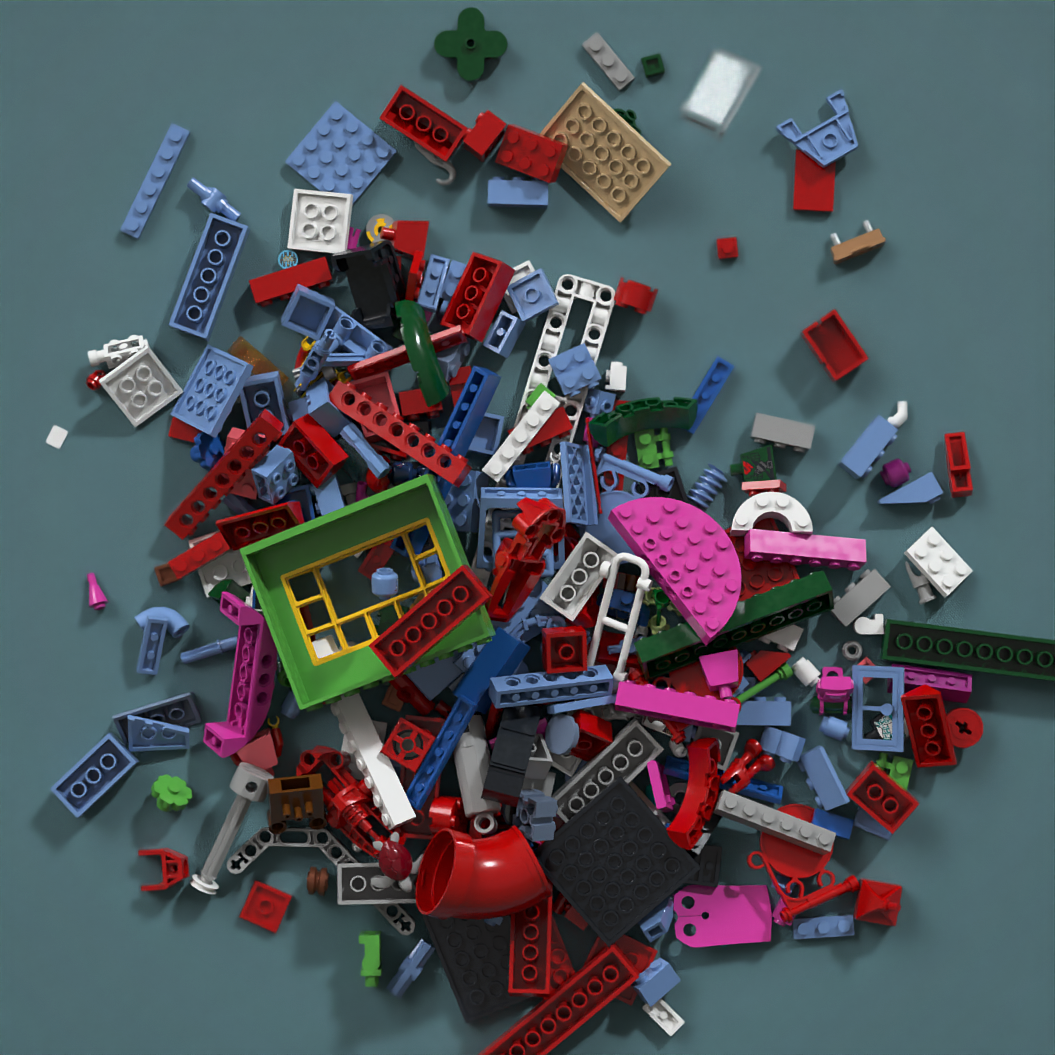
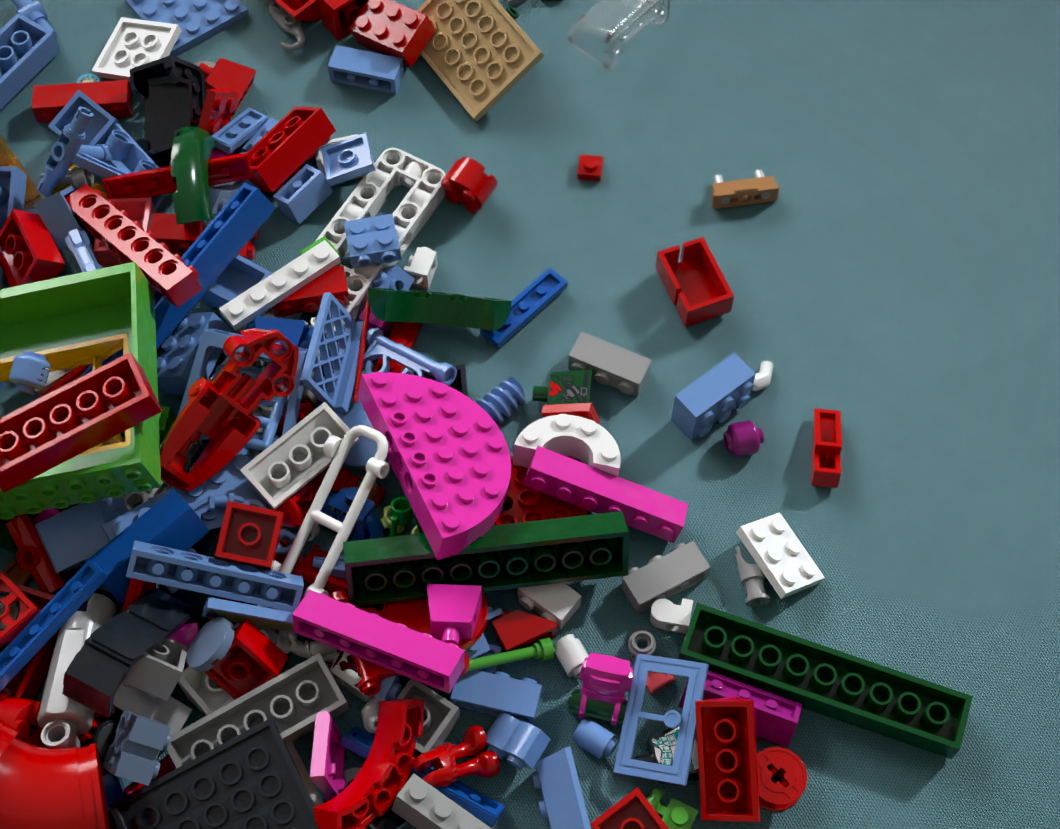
camera: 10 degrees right, 25 degrees down
(647, 450) = (439, 342): bright green plate -> none
(813, 185) = (706, 123): red tile -> none
(828, 140) = (729, 83): medium blue wing -> none
(918, 491) = (763, 466): medium blue slope -> none

